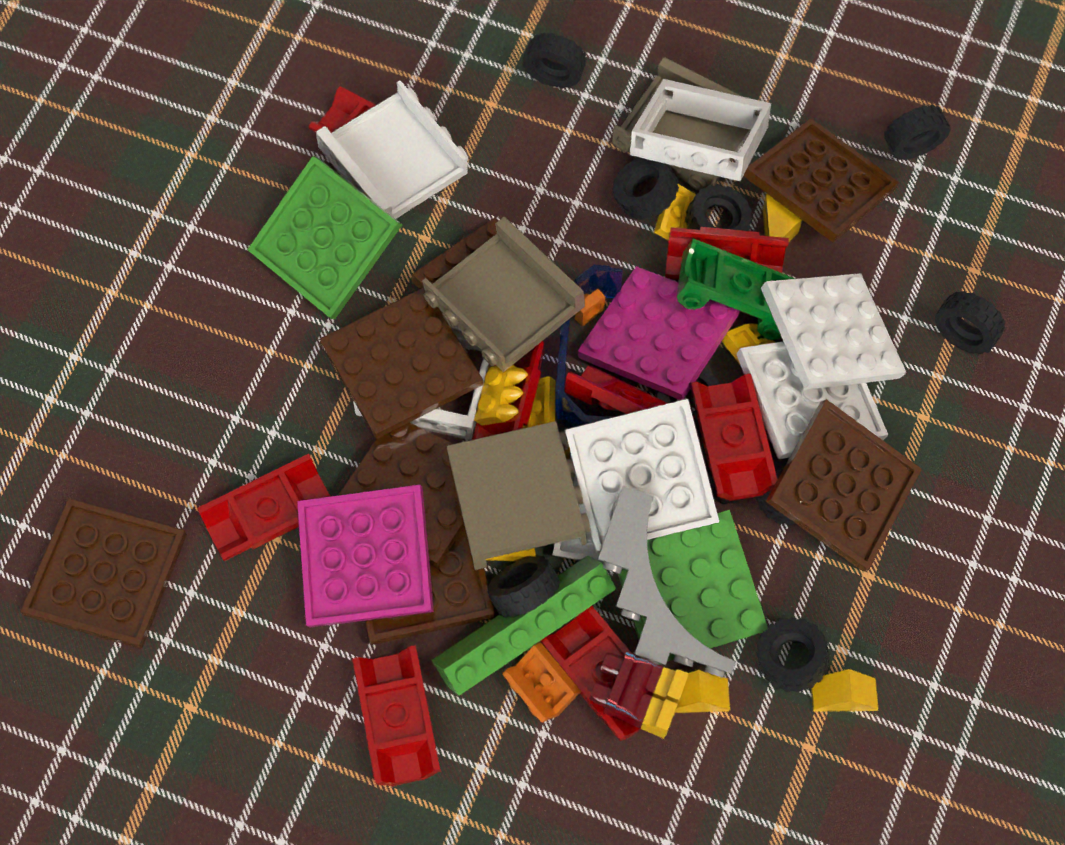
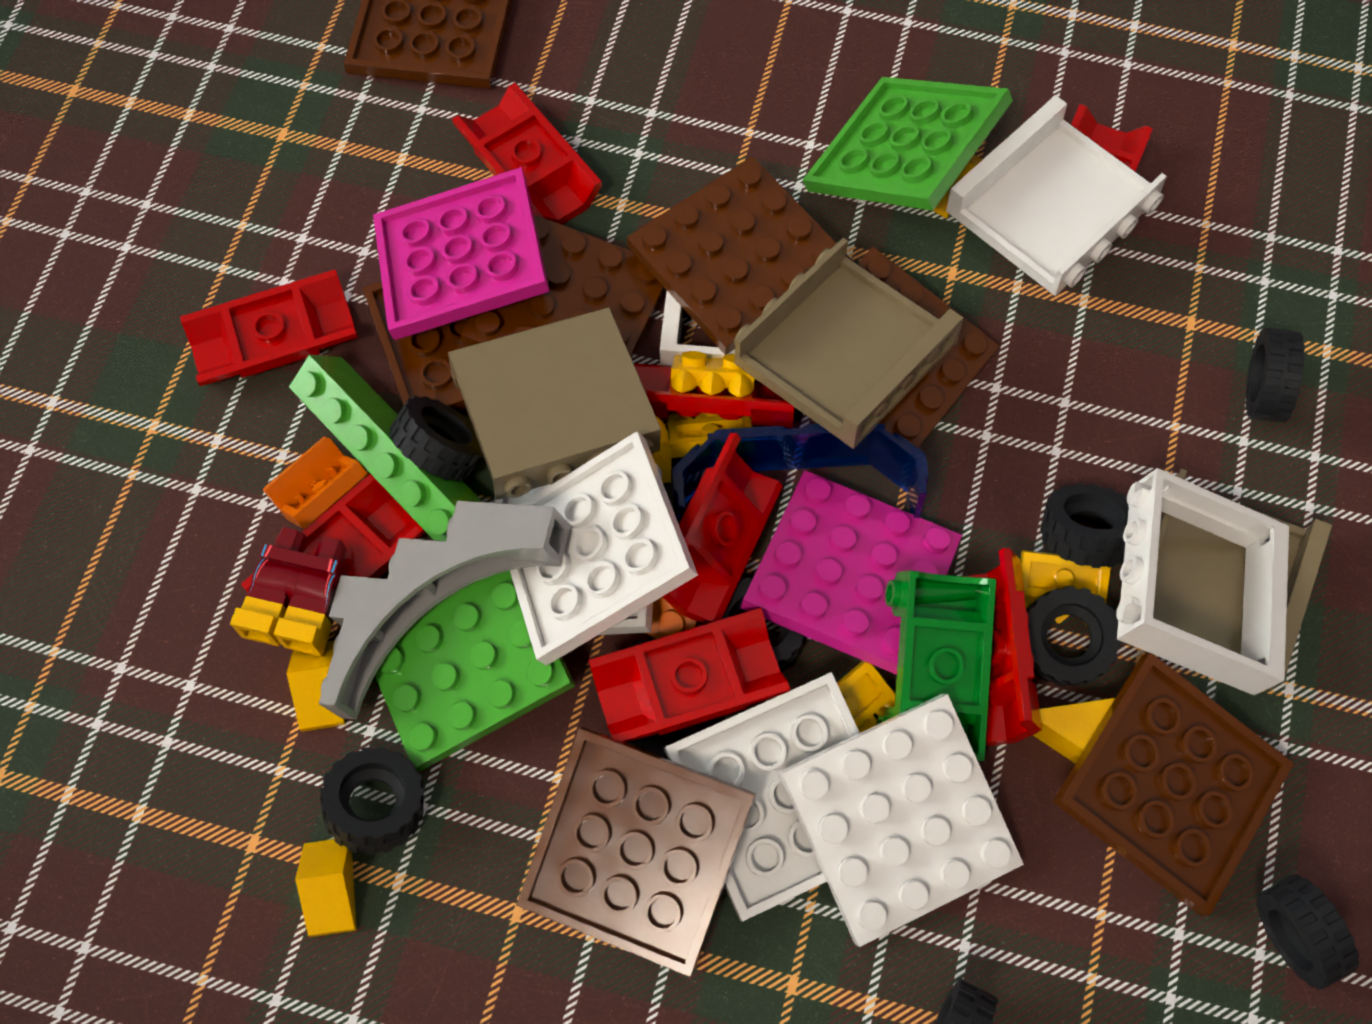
camera: 85 degrees right, 0 degrees up
(593, 306) = (879, 478): orange plate -> none

